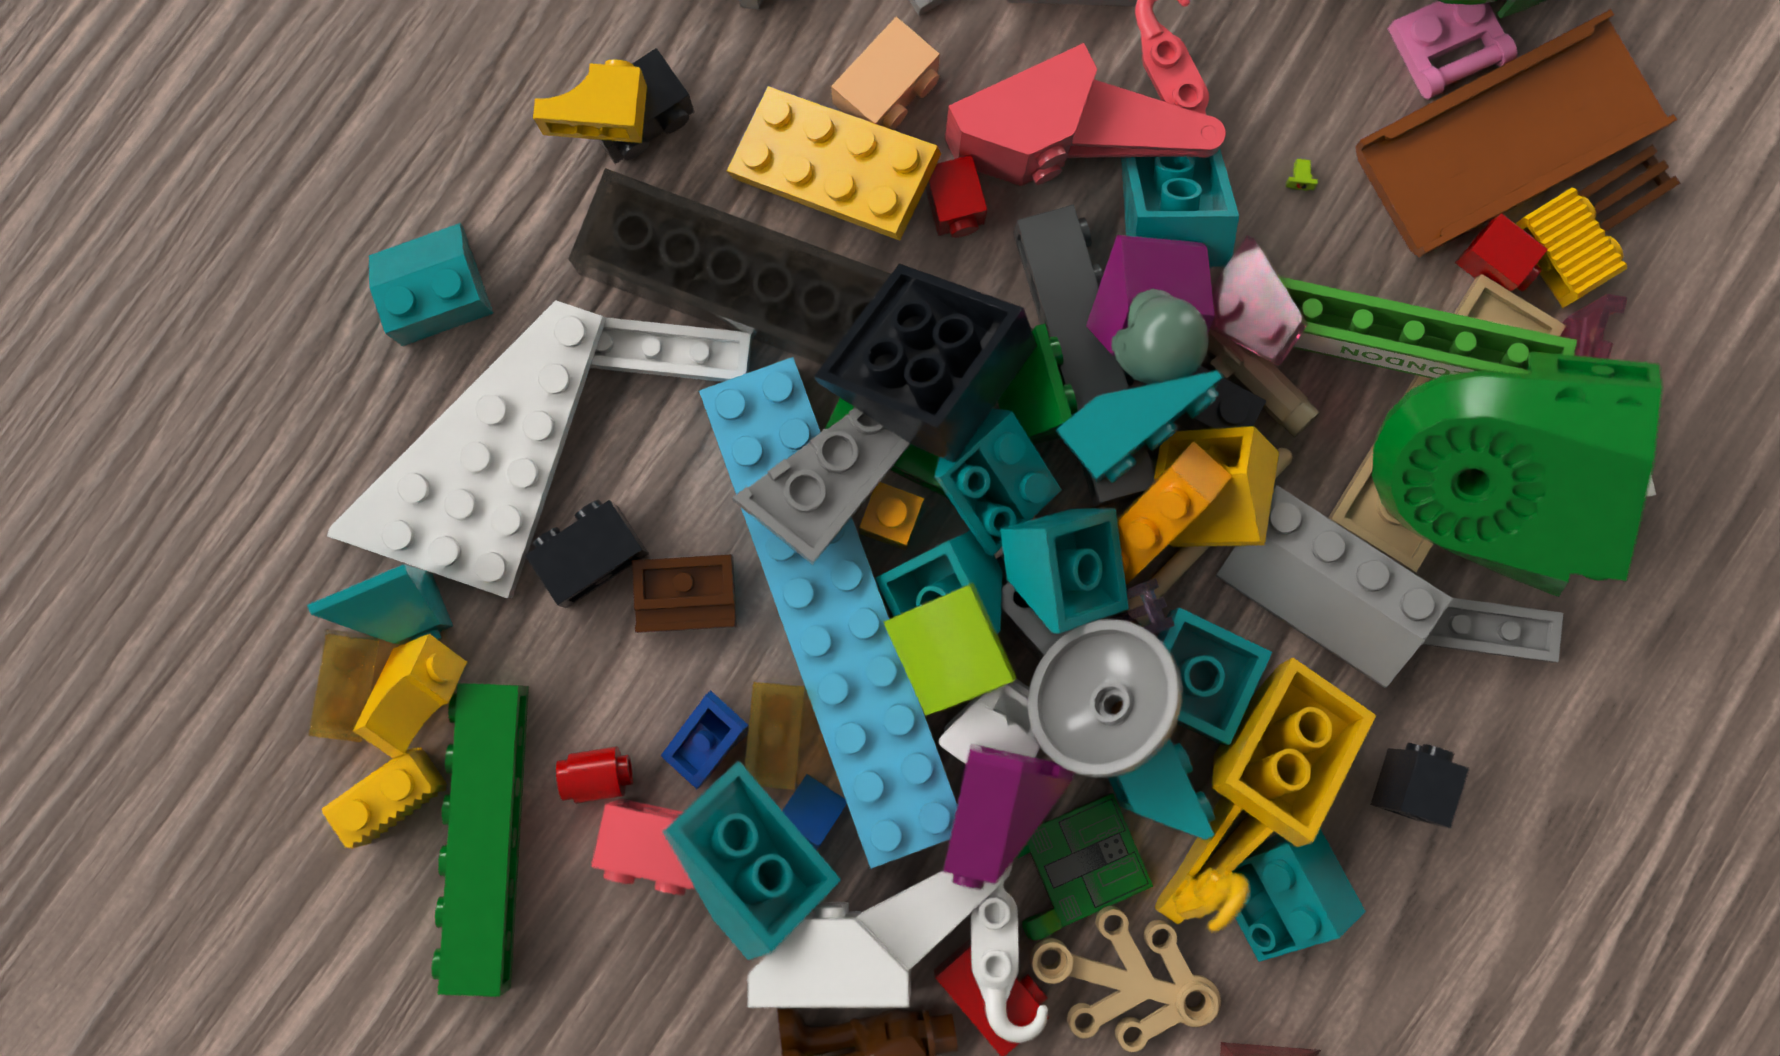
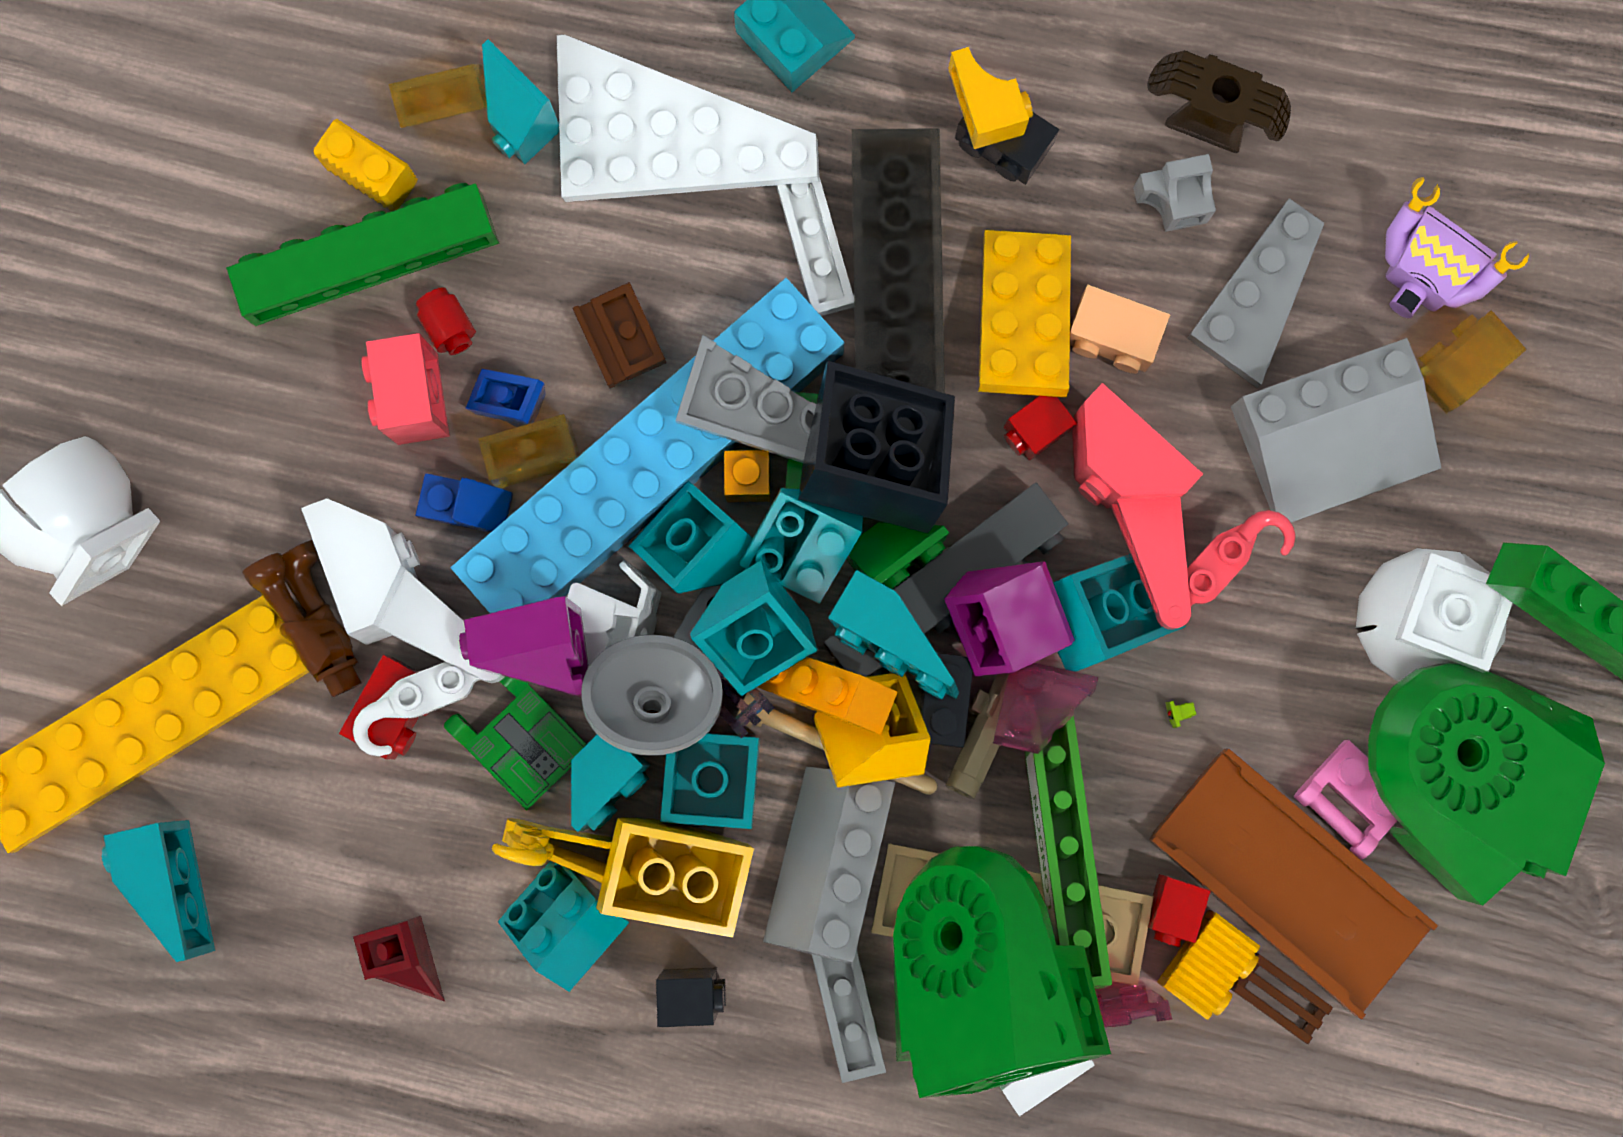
camera: 70 degrees right, 0 degrees up
(408, 691) = (456, 148): yellow arch -> none
(585, 553) = (621, 243): black brick -> none
(749, 863) = (416, 463): teal slope -> none
(950, 649) = (648, 559): lime slope -> none
(1133, 983) = (439, 821): tan plant -> none
(1162, 339) = (971, 630): sand green helmet -> none

